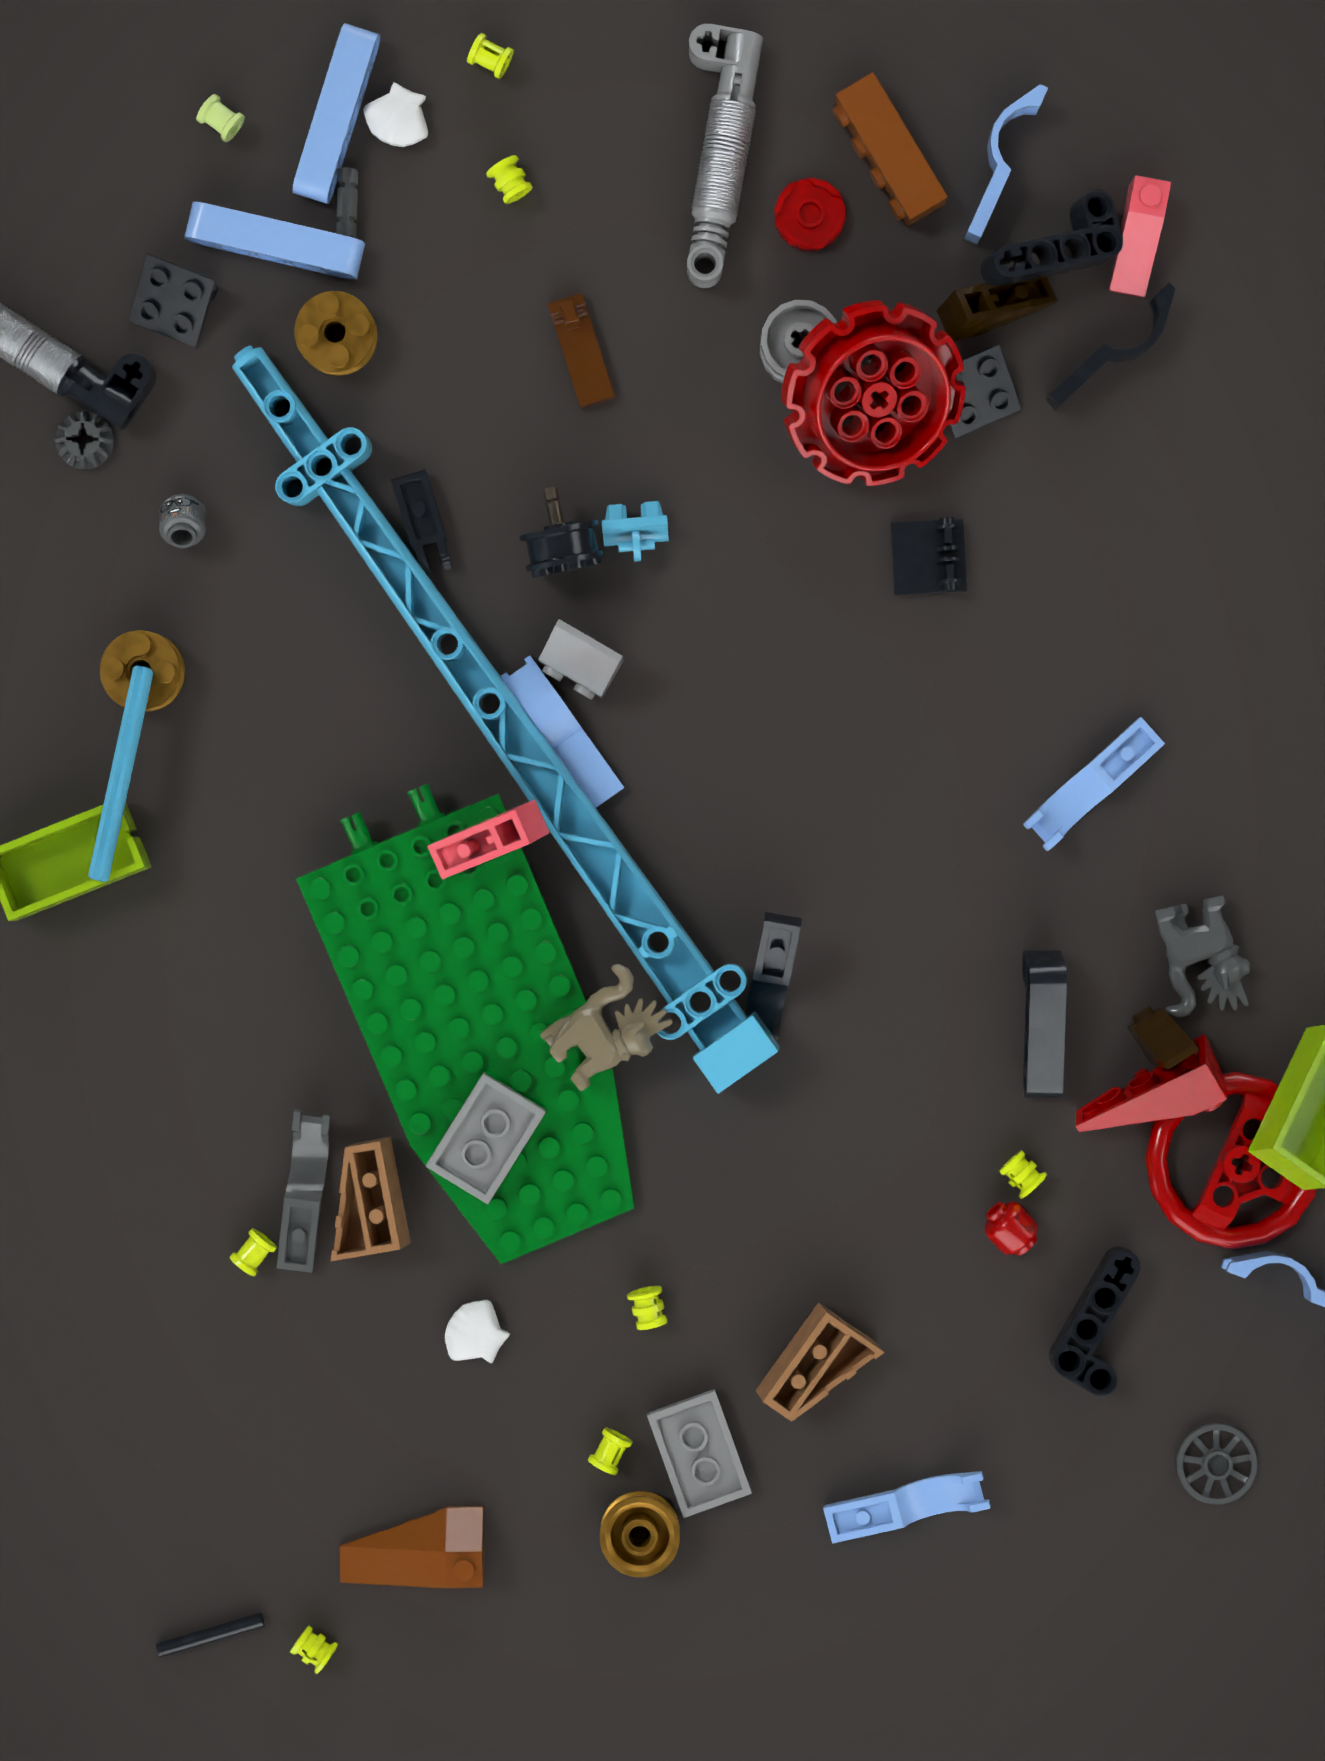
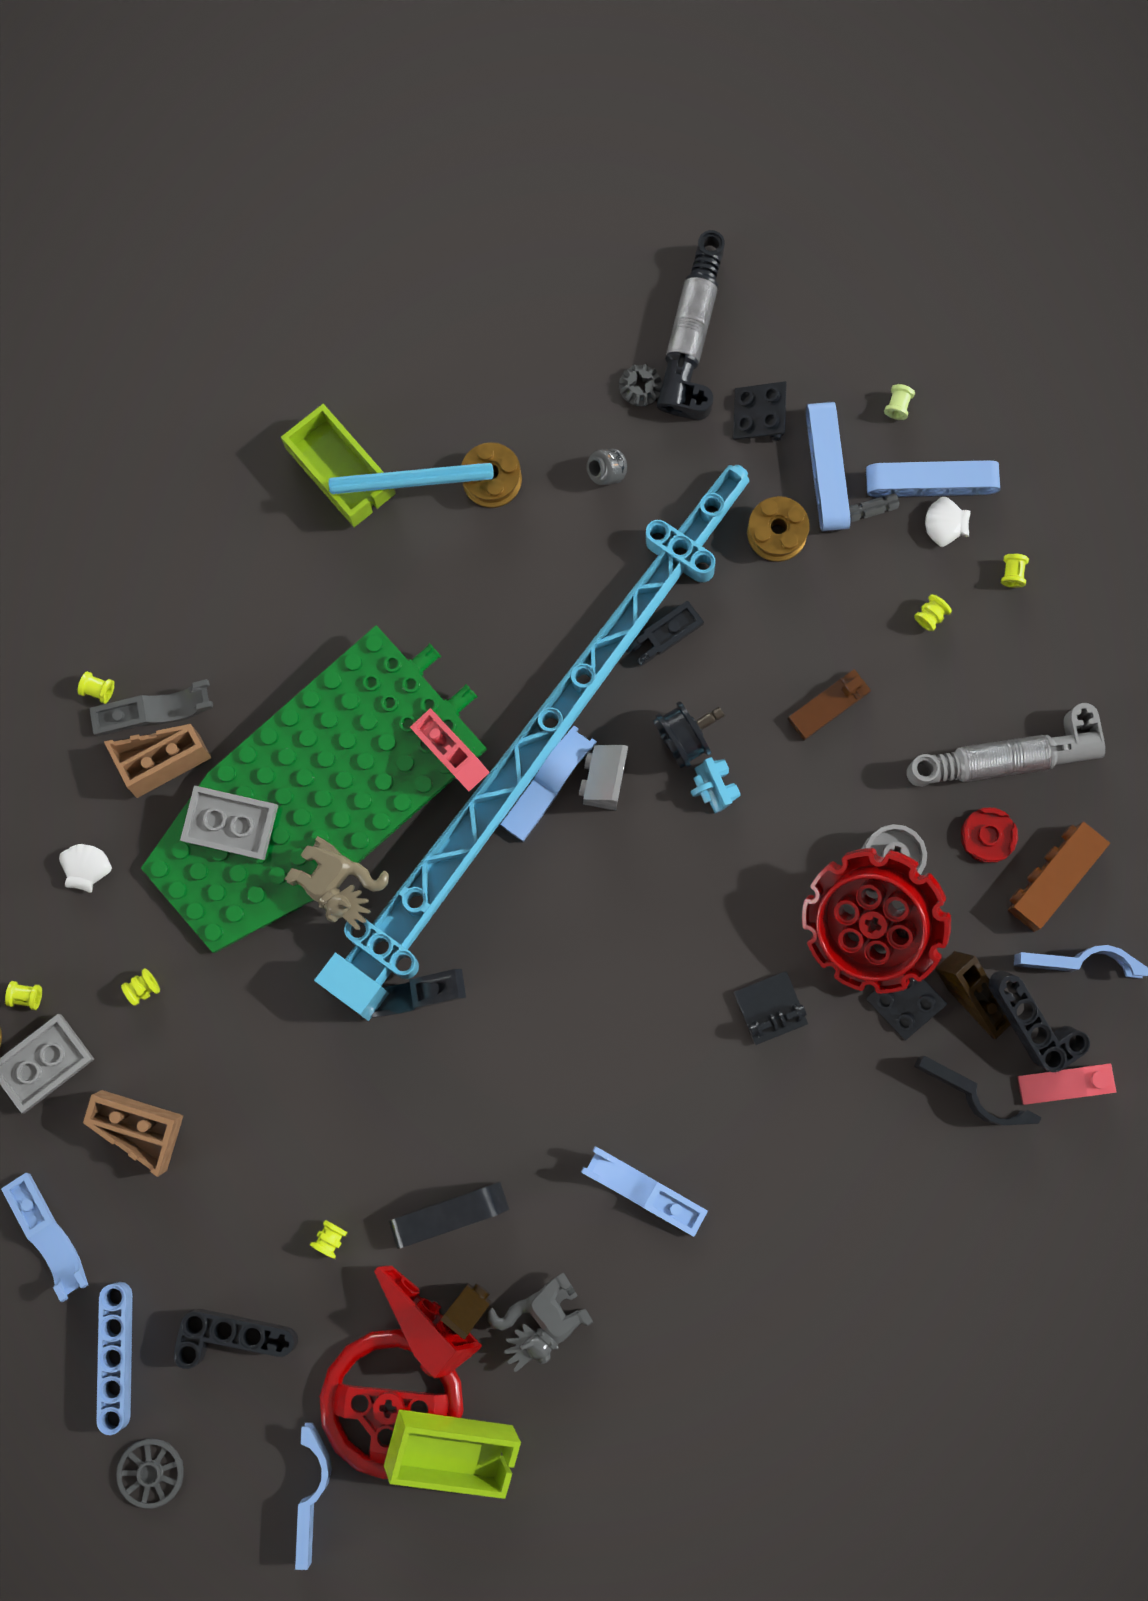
camera: 70 degrees right, 10 degrees down
(1011, 1228) = (284, 1244): red head -> none
(1087, 1477) = (108, 1371): none -> light blue beam

